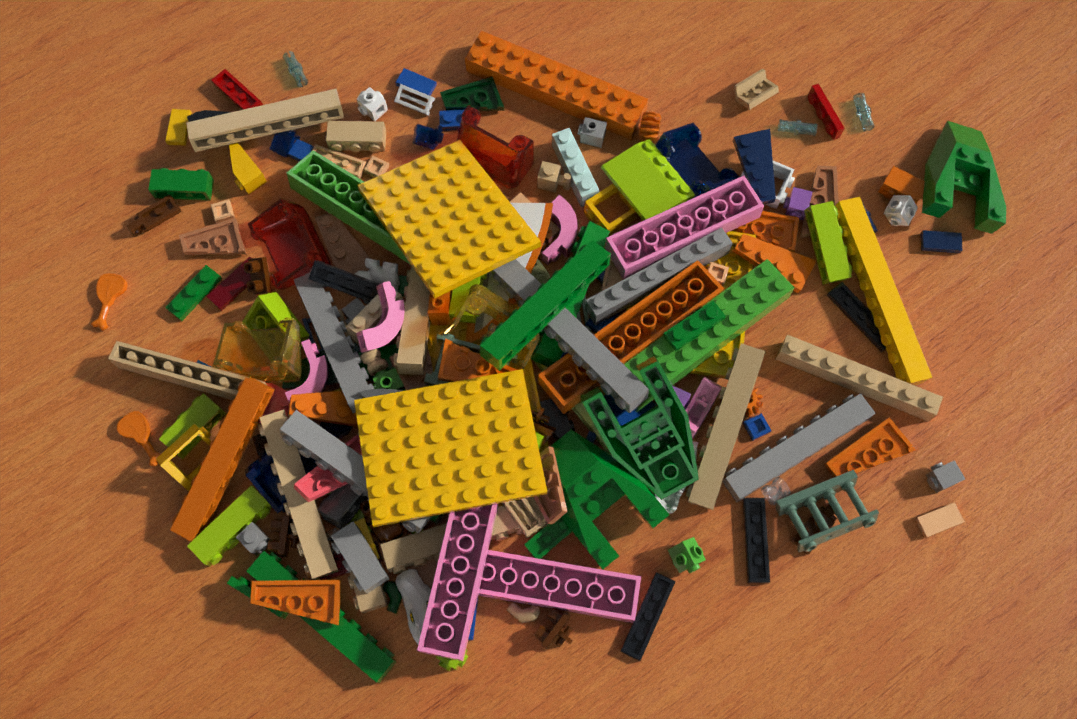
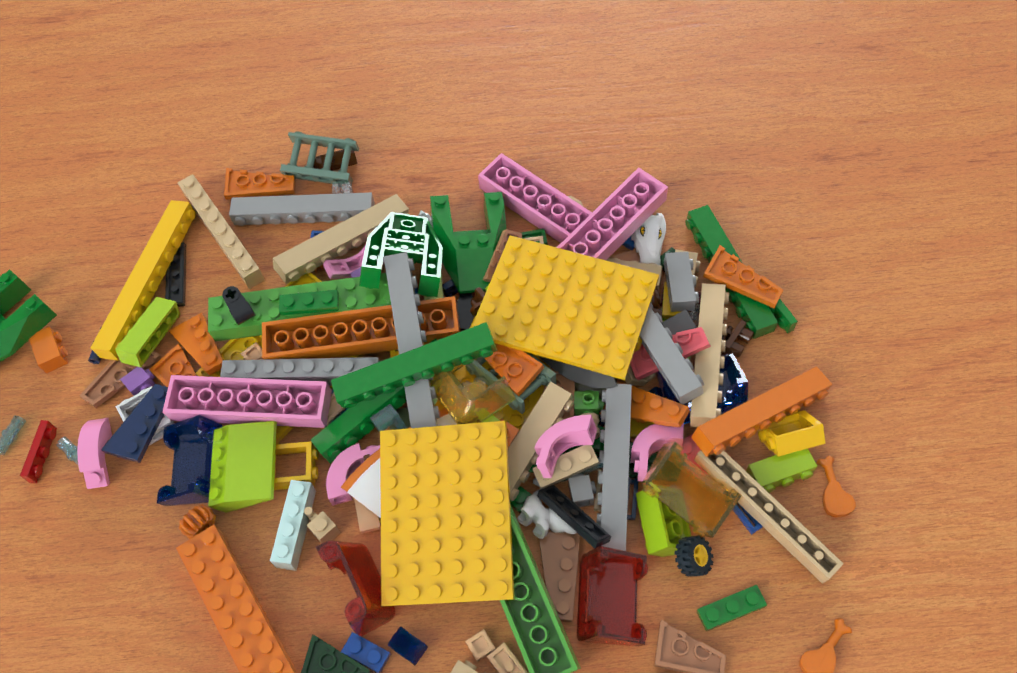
camera: 145 degrees left, 10 degrees down
(222, 532) = (779, 367): lime brick -> none
(230, 287) = (685, 594): dark red tile -> none
(237, 306) = (694, 556): none -> black wheel
(254, 539) = (761, 347): light grey brick -> none
(259, 275) = (657, 579): reddish brown hips -> none
(552, 265) = (387, 417): none -> clear light blue panel
(559, 620) = (562, 180): reddish brown hips -> none
(592, 132) = (250, 553): light grey brick -> none
(647, 616) = (470, 174): black tile -> none
(687, 555) = (435, 180): bright green brick -> none
(752, 285) = (237, 305): none -> black piece
(754, 90) = (75, 507): tan bracket -> none
(756, 540) = (382, 170): black tile -> none
(783, 131) = (91, 458): none -> bright pink arch
(900, 210) = (65, 334): white brick -> none
(939, 520) = (251, 126): light nougat tile -> none
(941, 241) = (64, 296): dark blue tile -> none
(944, 476) = (223, 144): light grey brick -> none

